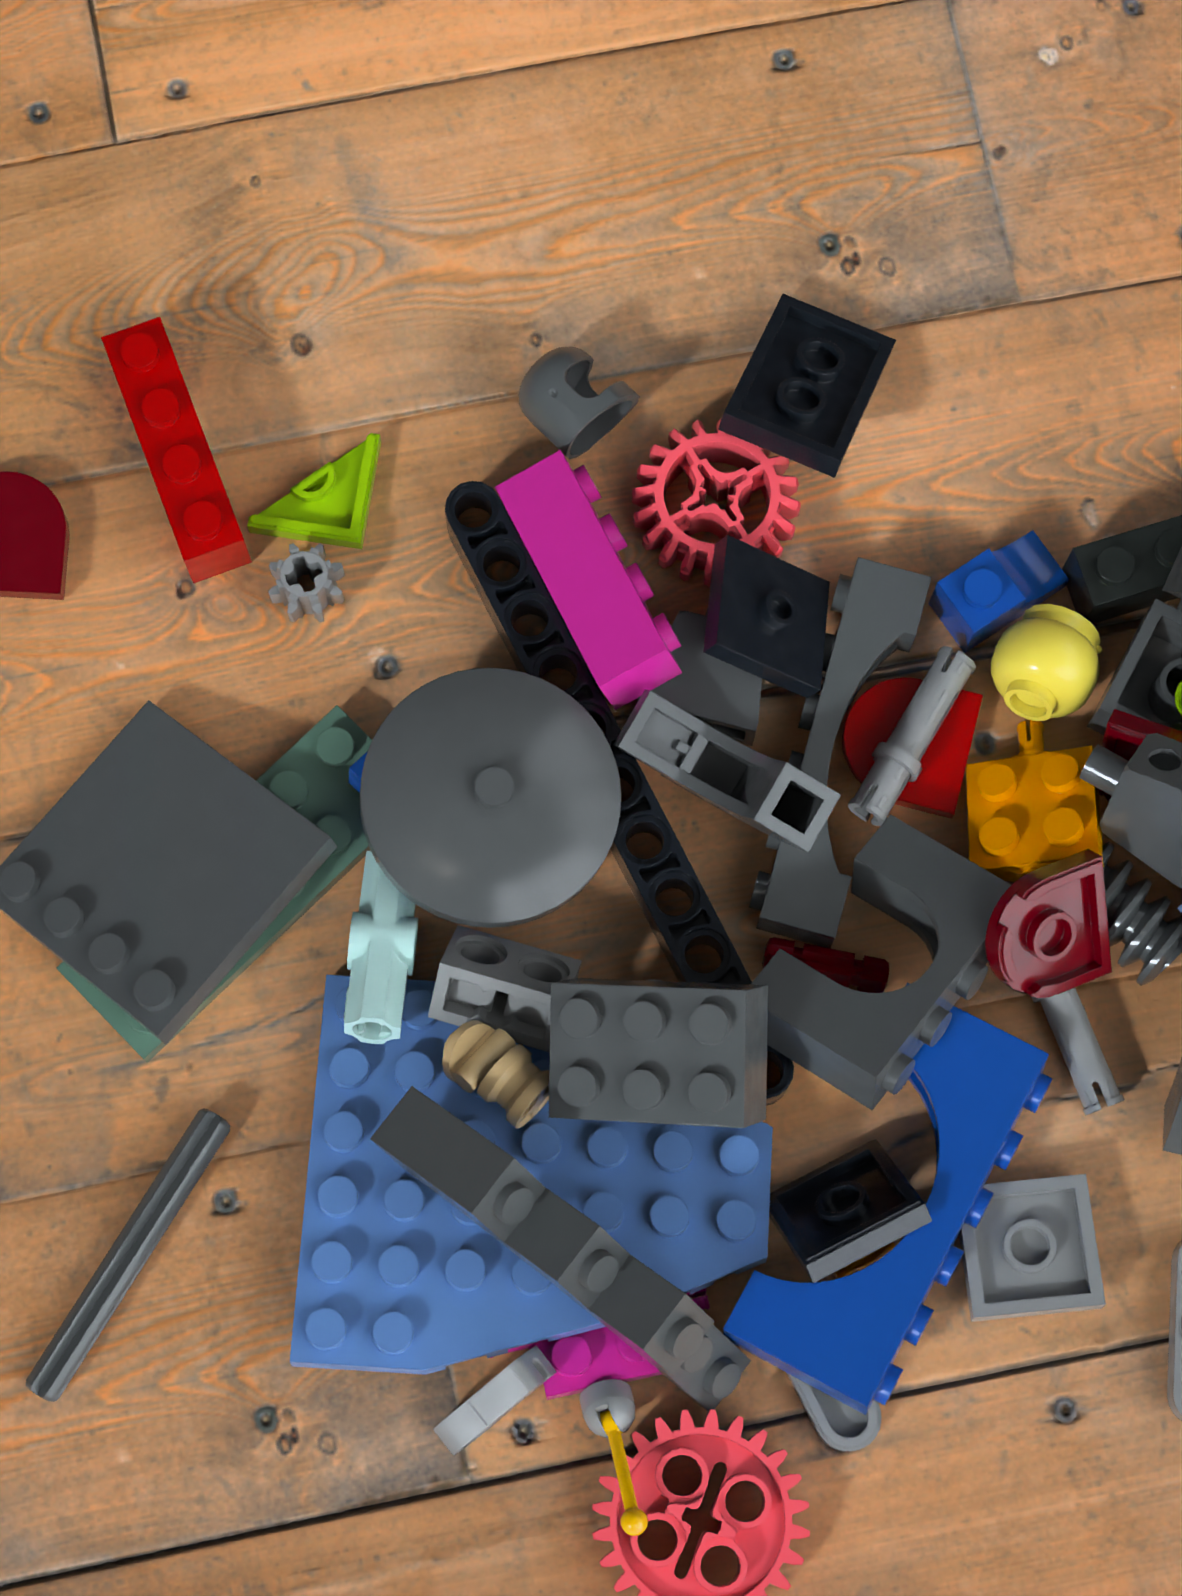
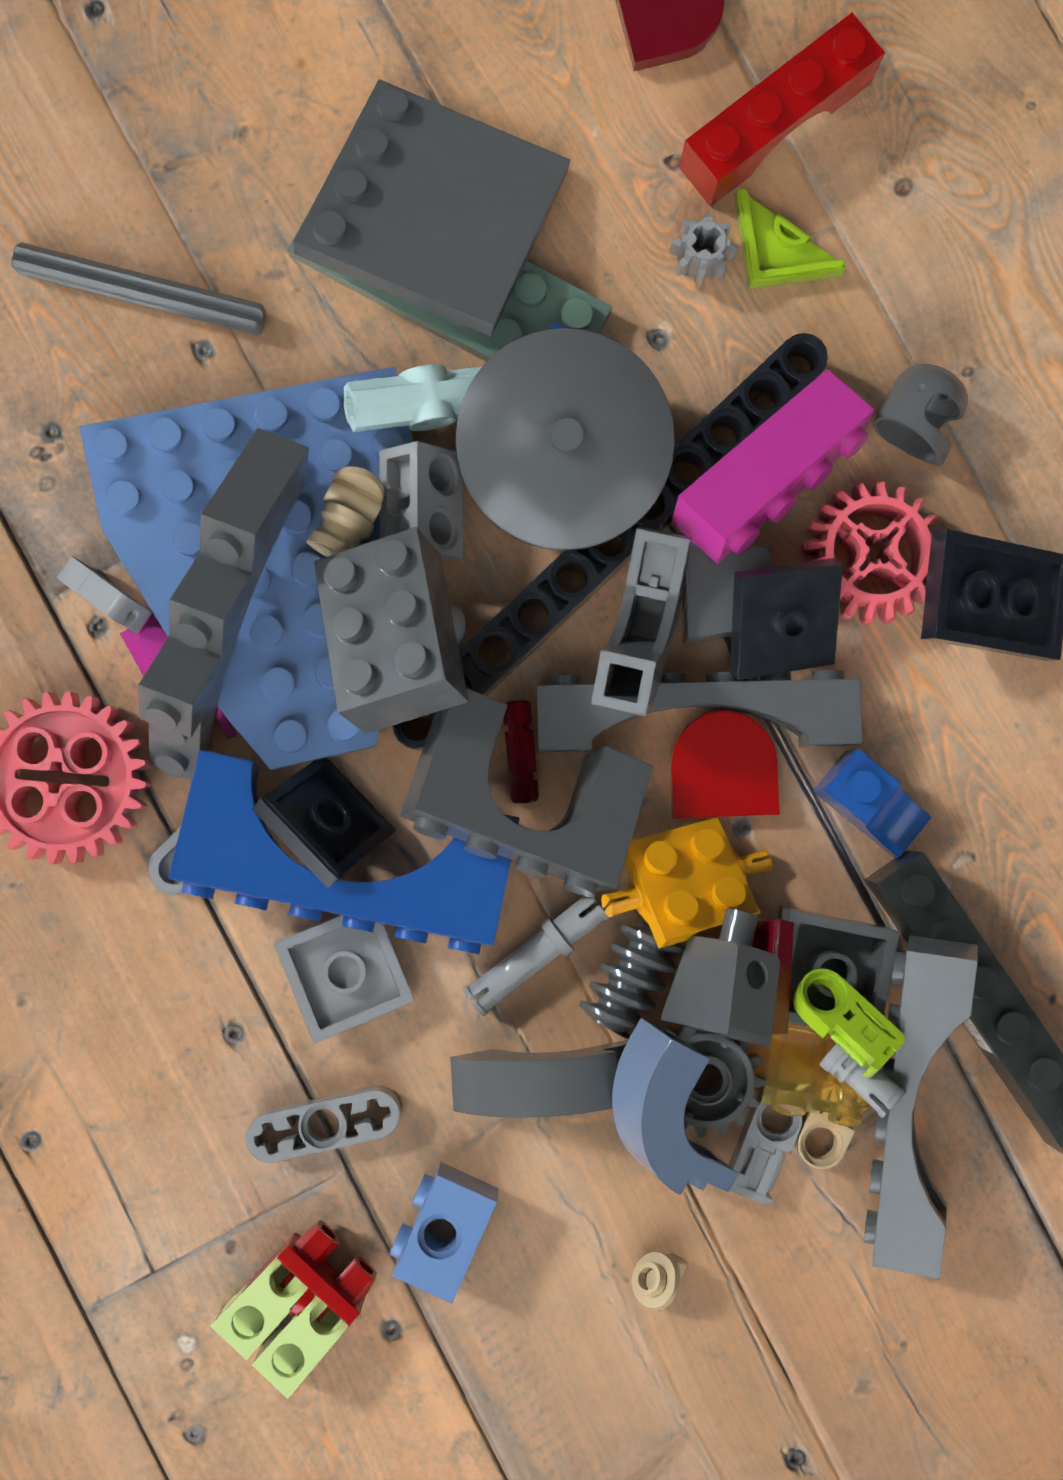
camera: 75 degrees right, 10 degrees up
(609, 1412) = (118, 684): hinge -> none
(900, 756) = (703, 760): light grey pin -> none
(1047, 663) = (820, 858): light yellow piece -> none
(1052, 928) = (594, 920): dark red tile -> none

